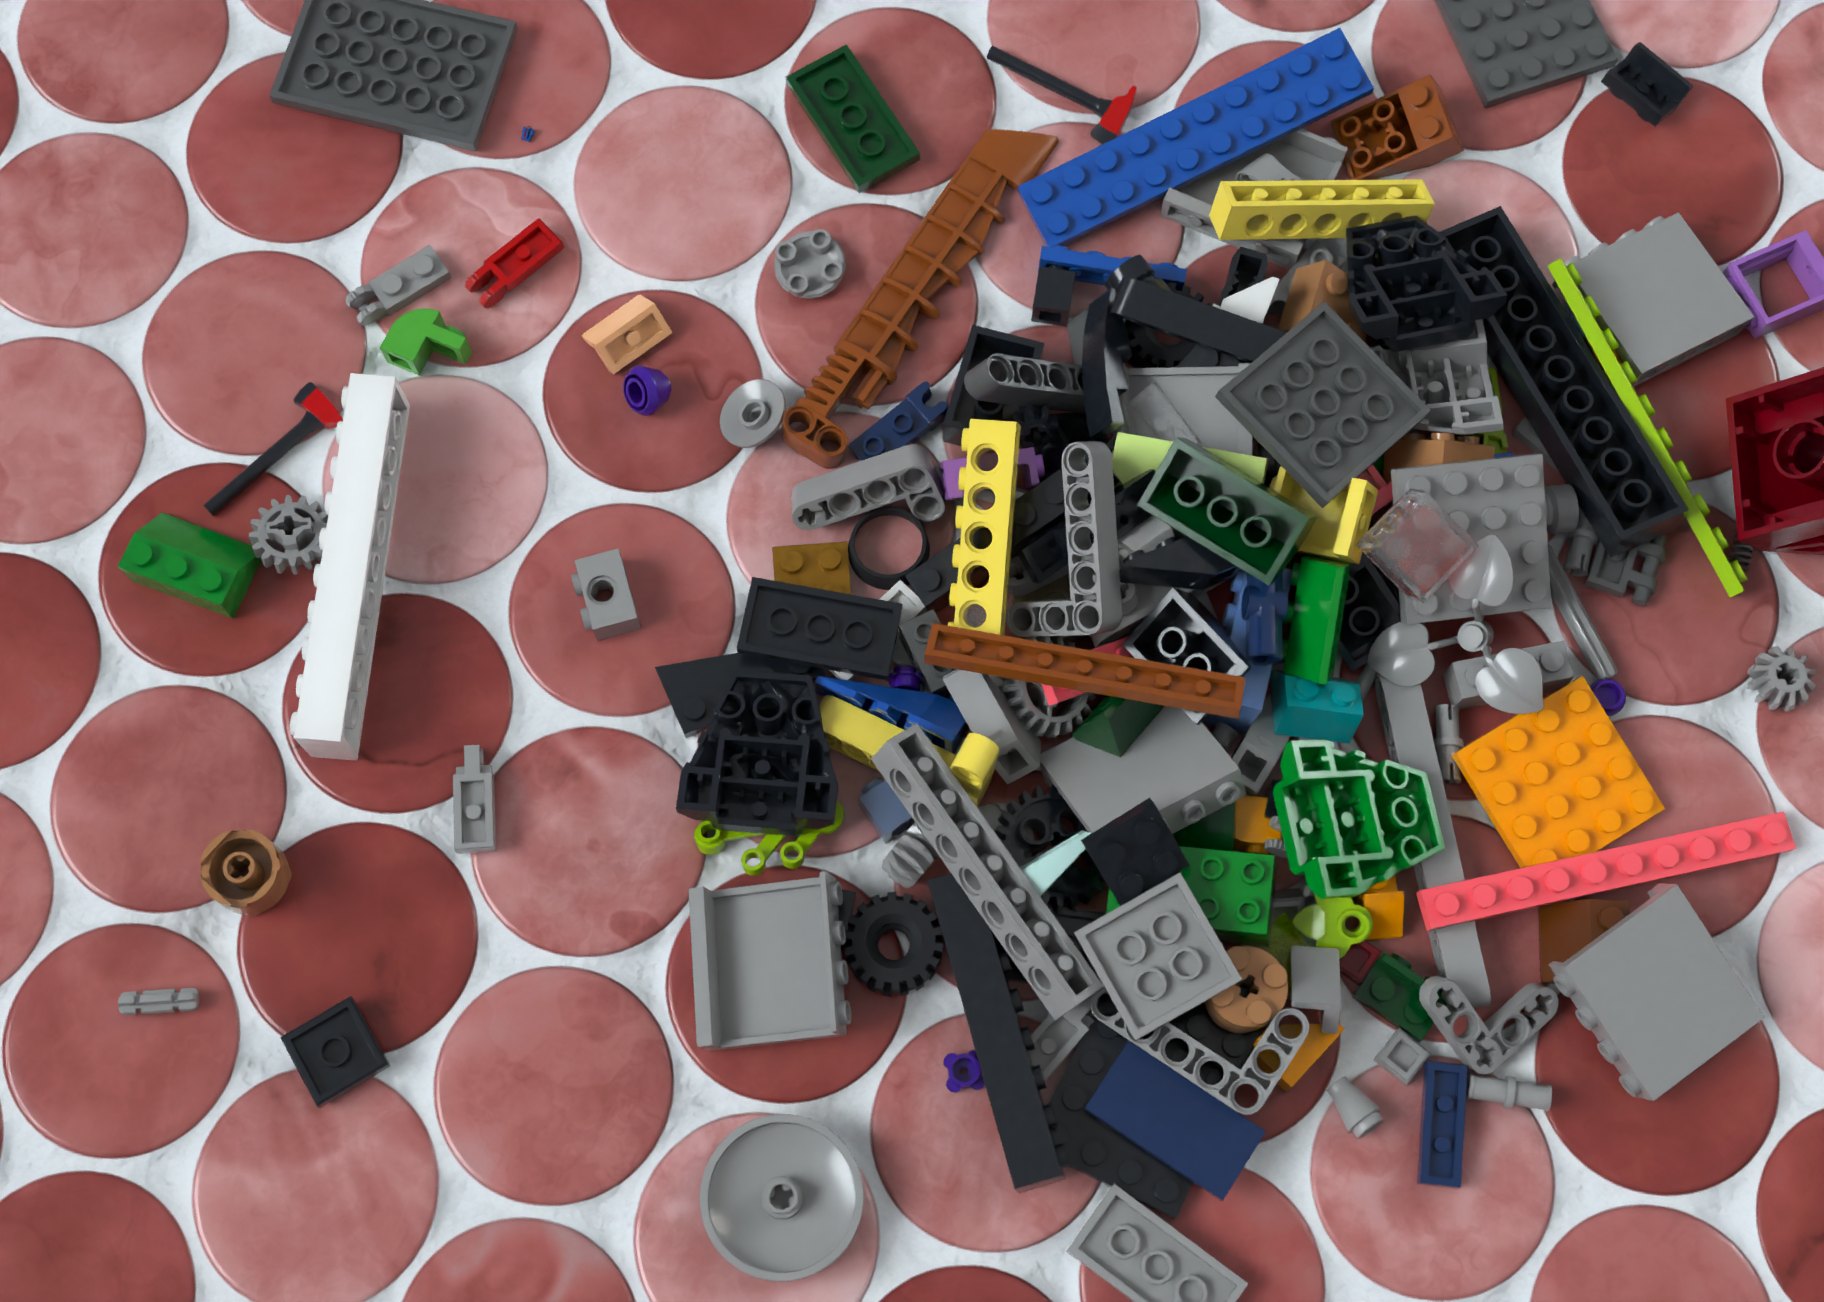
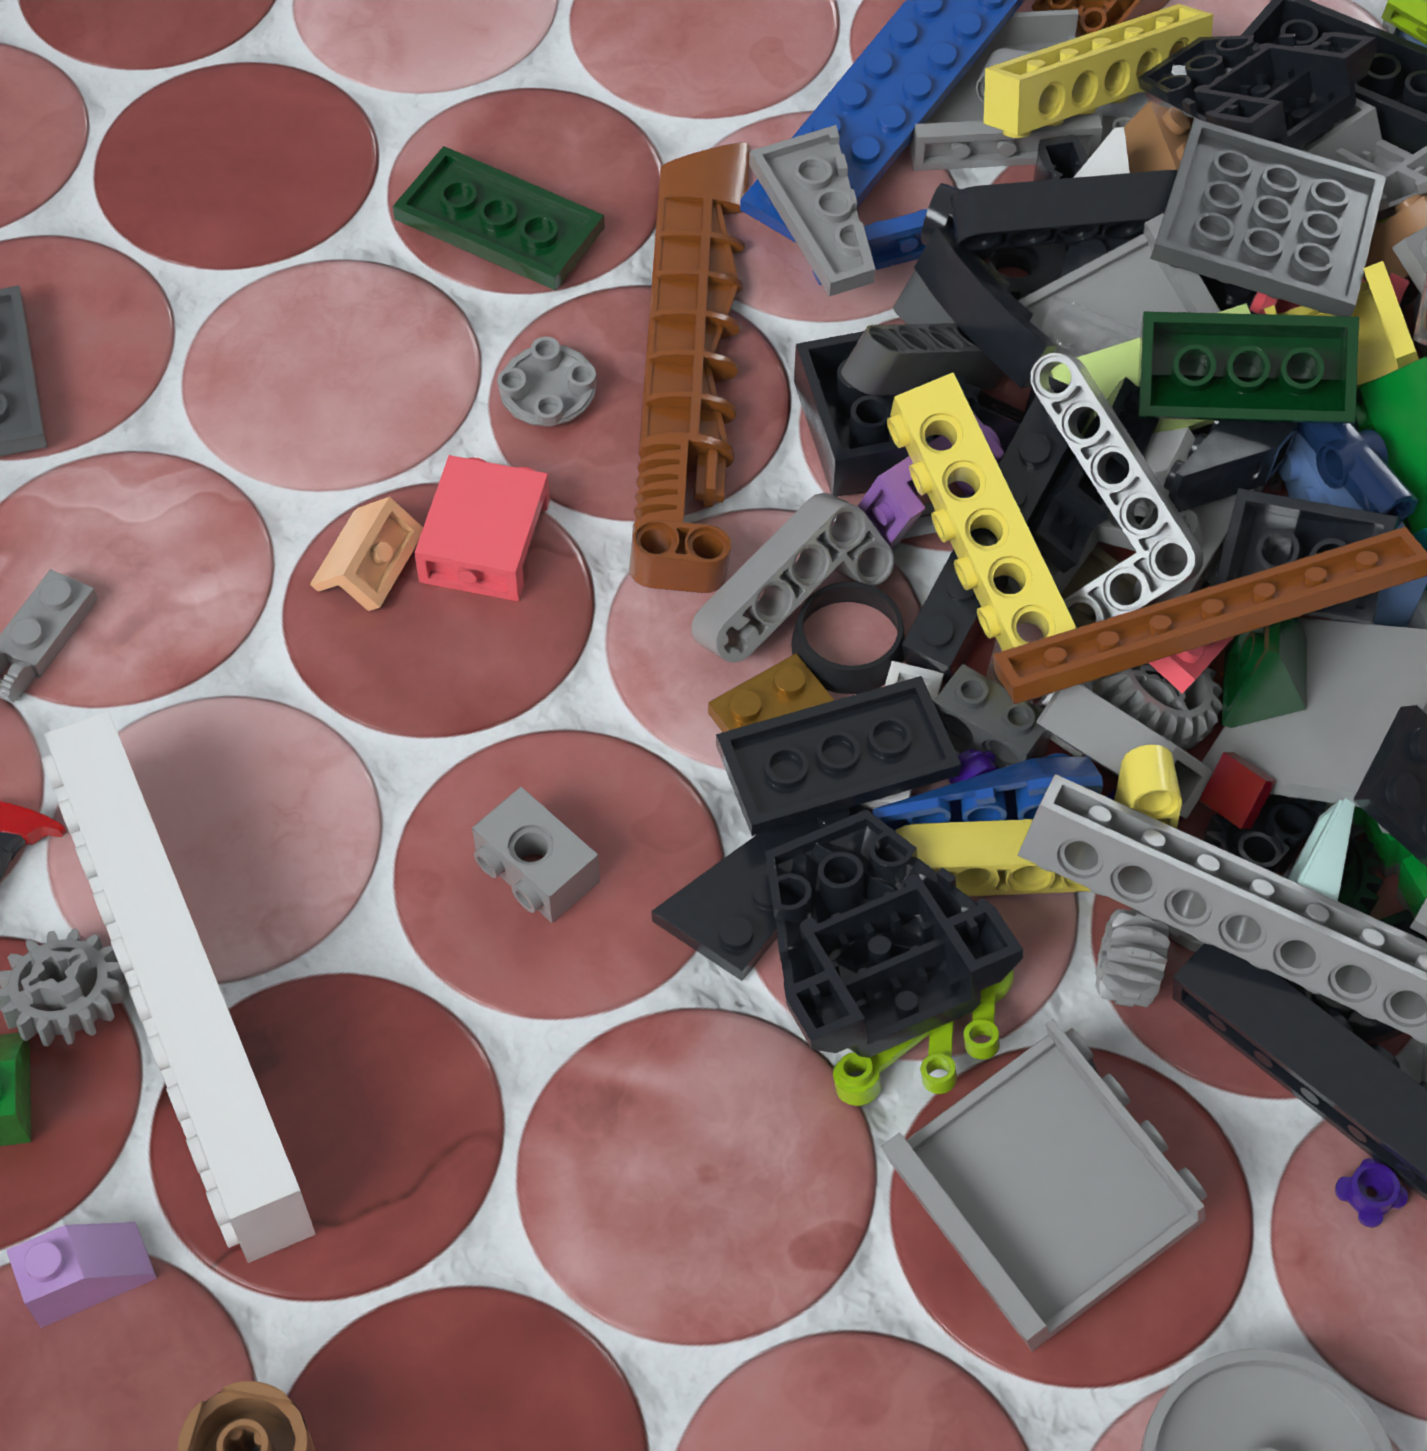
camera: 30 degrees left, 15 degrees down
(216, 712) = (79, 1268): none -> lavender slope
(418, 335) = (102, 669): bright green brick -> none
(474, 804) = (519, 1200): light grey hinge -> none
(515, 262) = (175, 540): red hinge -> none
(527, 133) = (102, 402): blue piece -> none
(646, 389) = (434, 601): dark purple cone -> none
(705, 349) = (481, 527): none -> coral panel
(752, 413) = (574, 557): light grey dish -> none
(884, 810) = (1057, 926): sand blue brick -> none
(893, 914) = (1204, 1052): black tyre -> none
(901, 425) = (774, 498): dark blue plate -> none
(1042, 786) = (1237, 790): none -> dark red tile
(1053, 295) = (865, 304): black brick -> none
(1055, 222) = (815, 200): none -> light grey wing
(1112, 113) = (791, 93): black piece -> none

